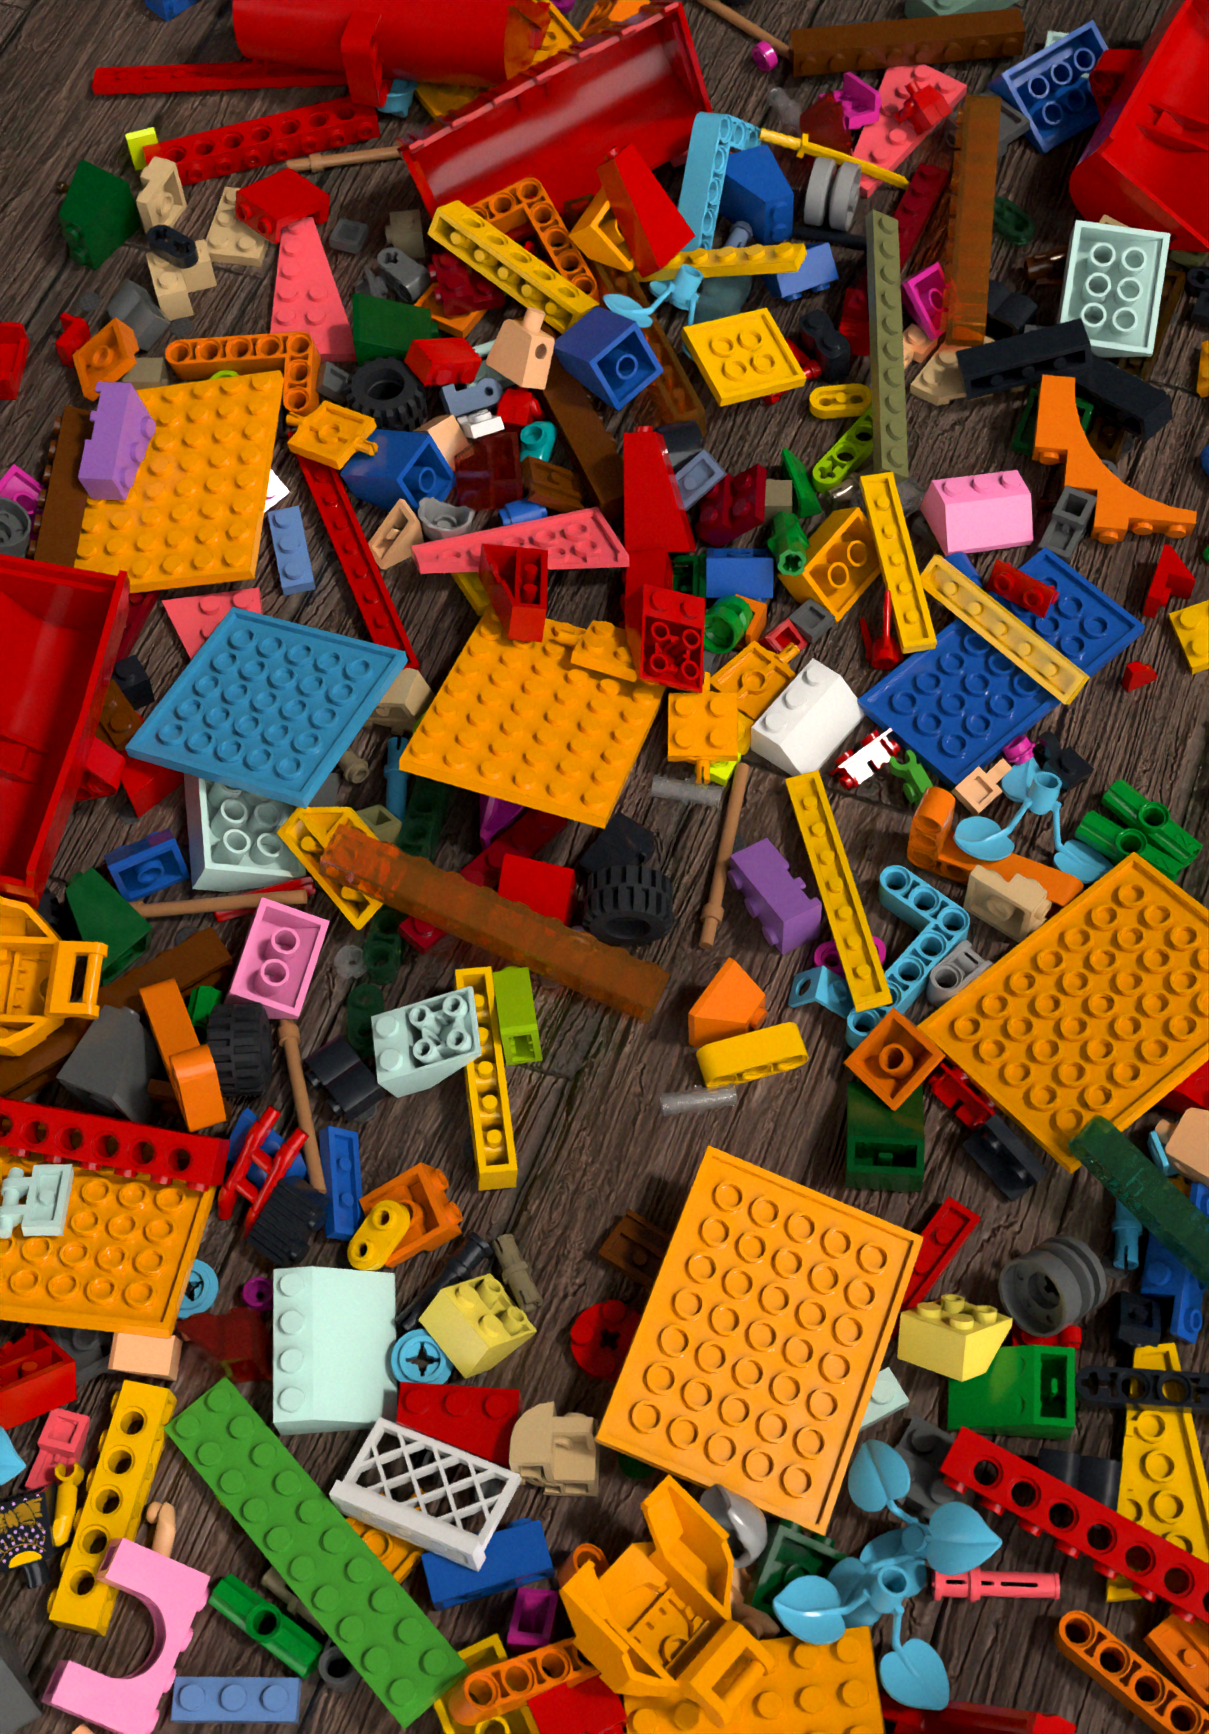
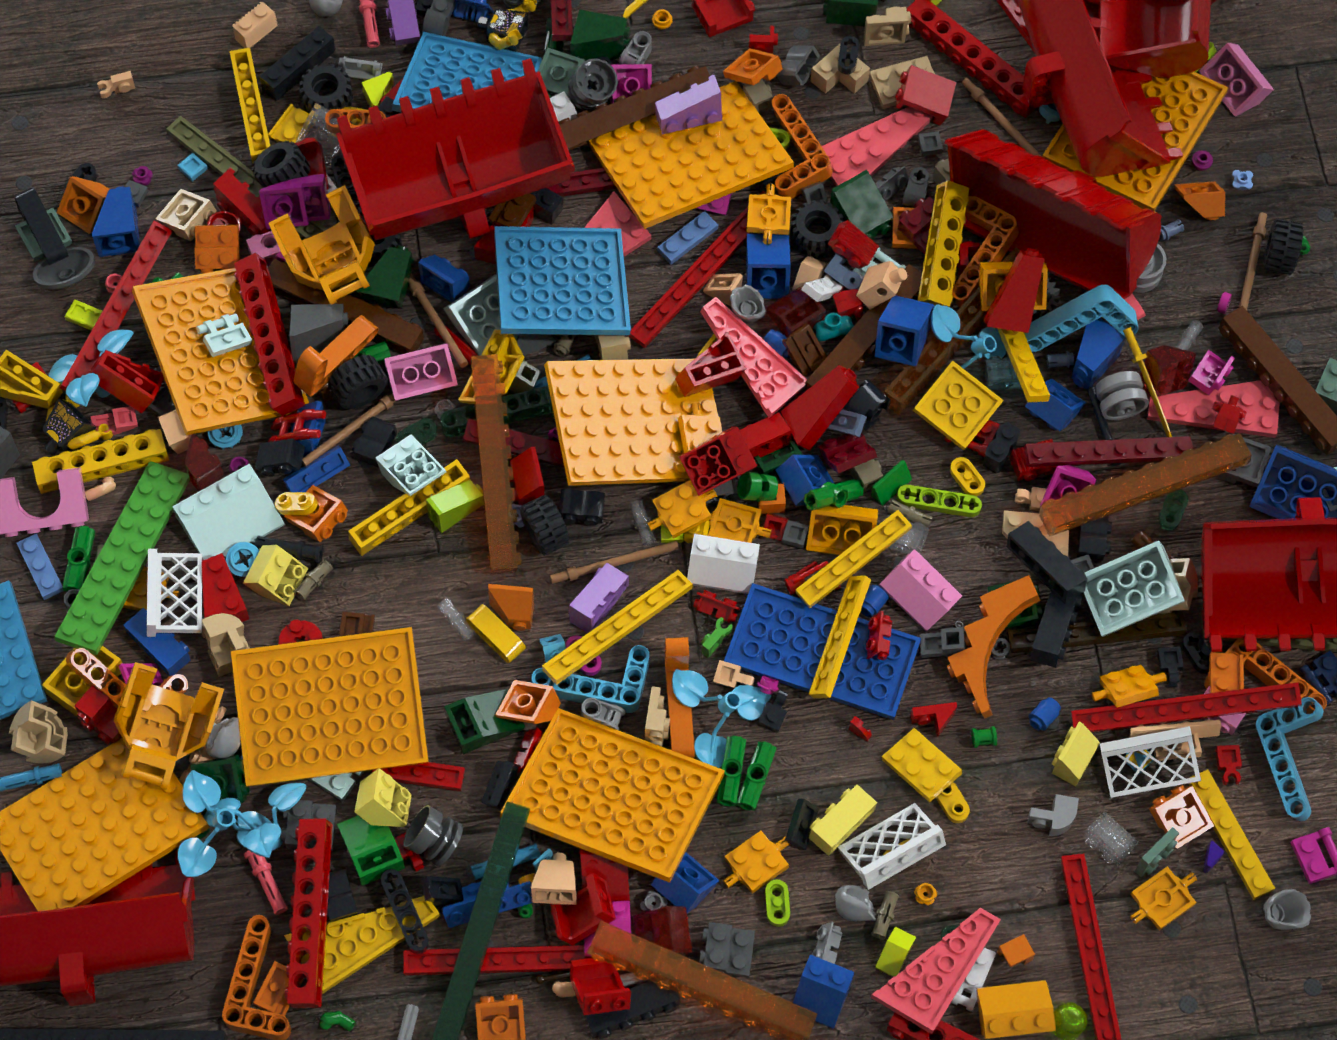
camera: 55 degrees right, 5 degrees up
(886, 346) = (1007, 478): olive plate -> none

